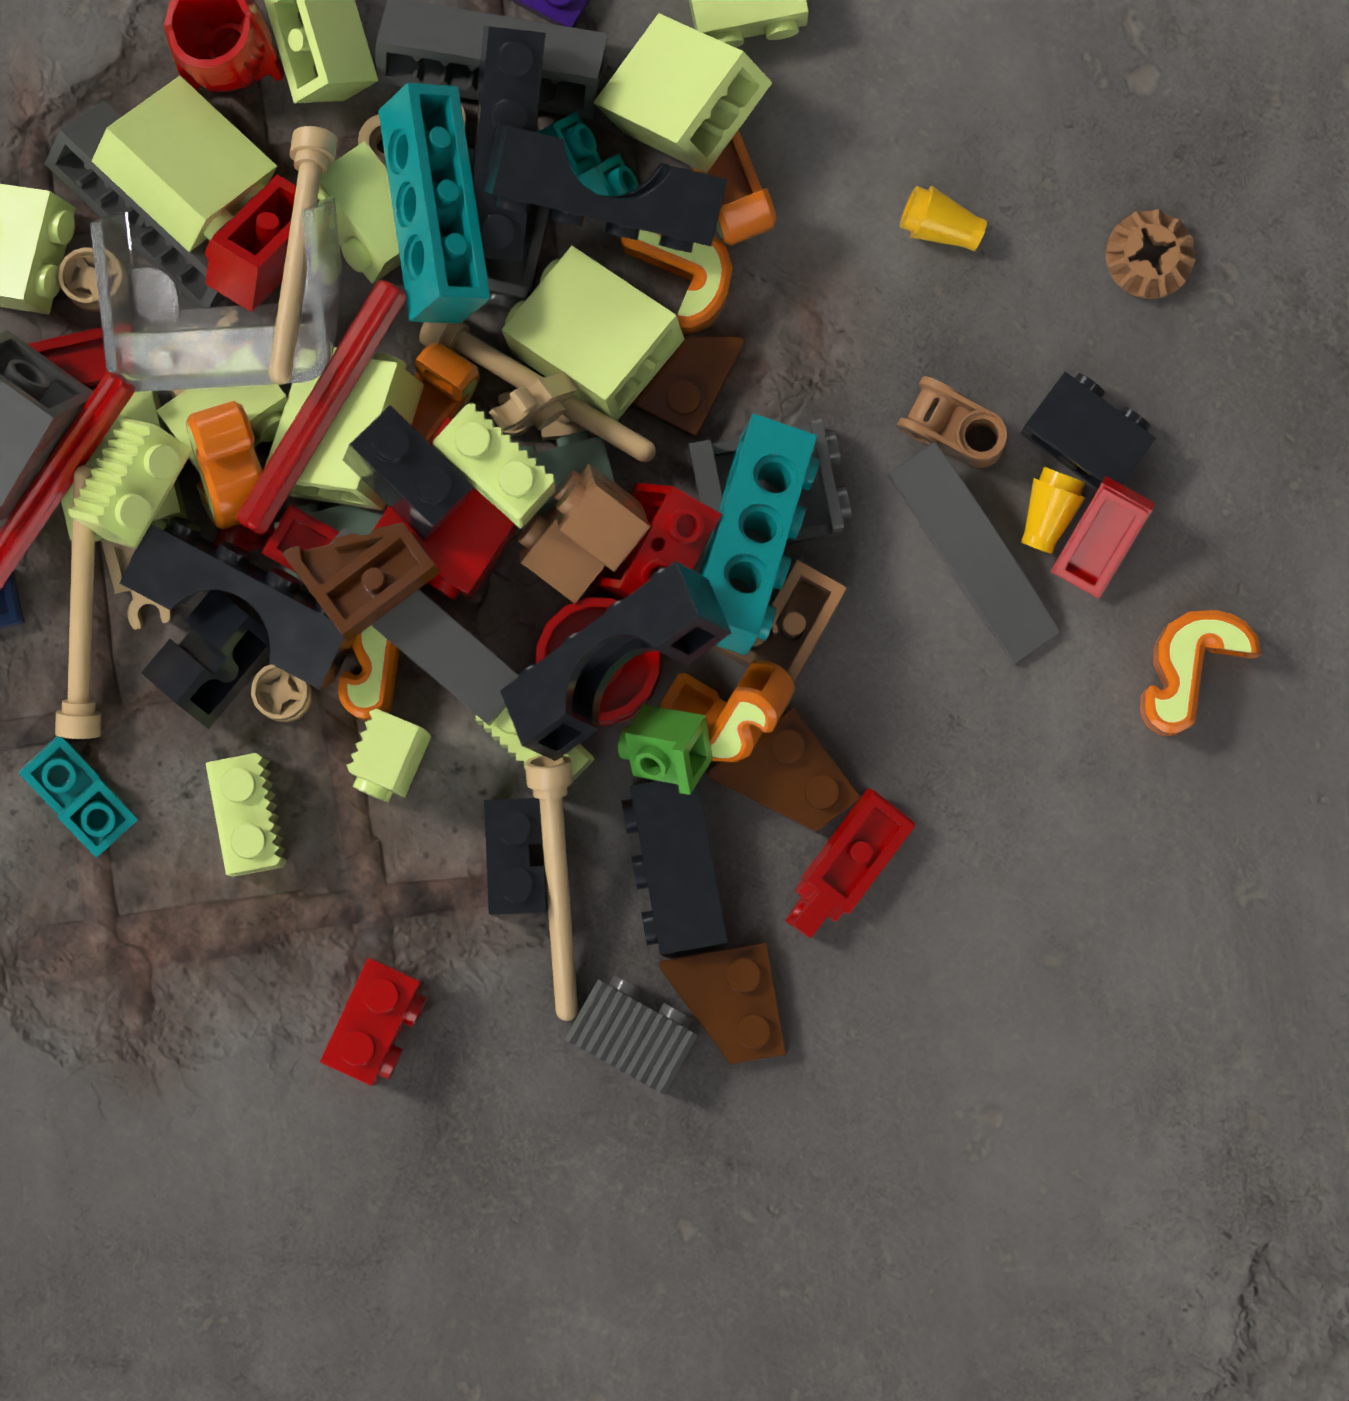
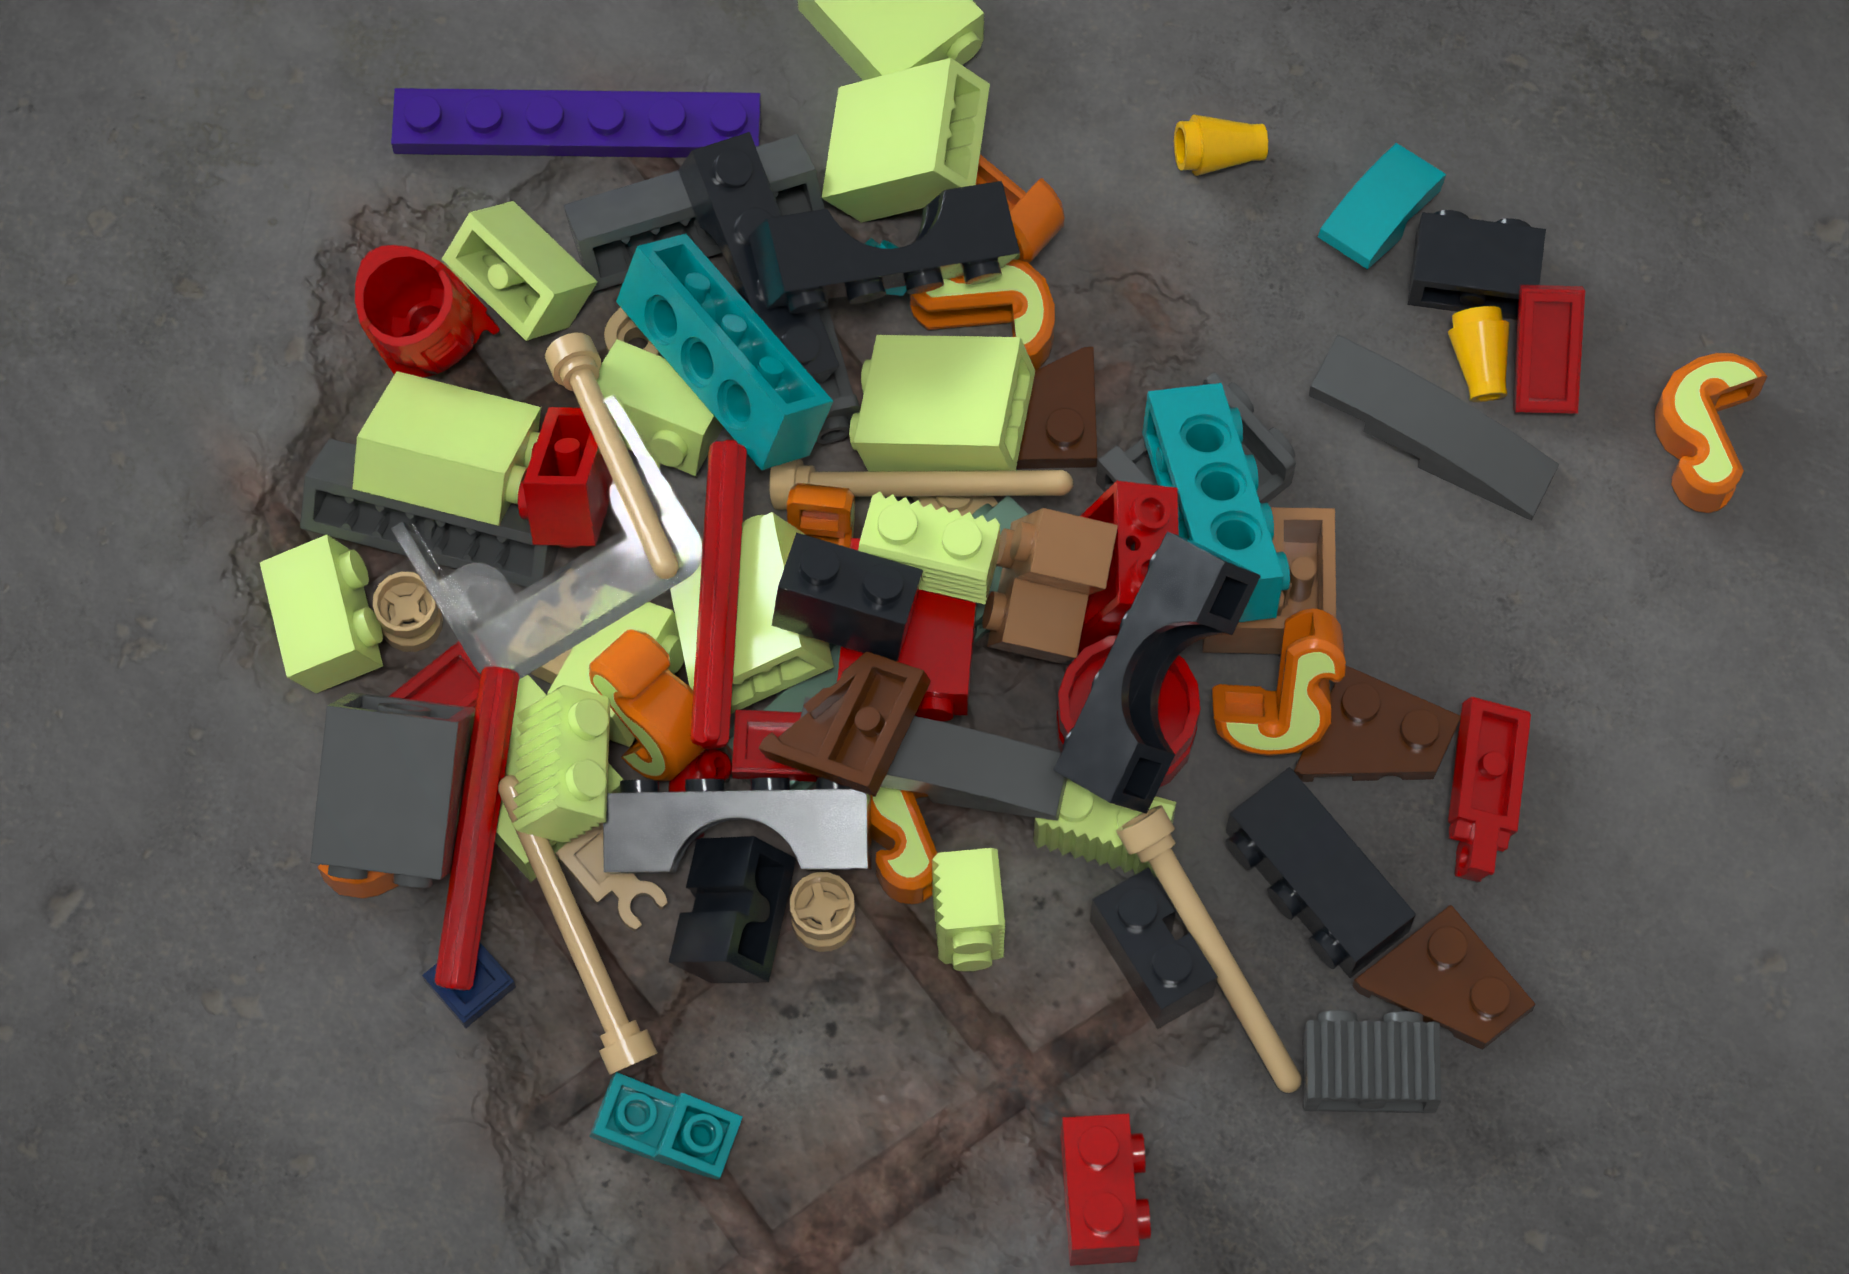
camera: 30 degrees left, 15 degrees down
(245, 814) = (853, 1049): yellowish green brick -> none
(536, 405) = (934, 478): tan plate -> none
(667, 746) = (1244, 753): bright green brick -> none
(951, 422) = (1340, 312): medium nougat piece -> none
(1042, 342) = (1380, 205): none -> teal slope
(1139, 277) = (1438, 103): medium nougat gear -> none

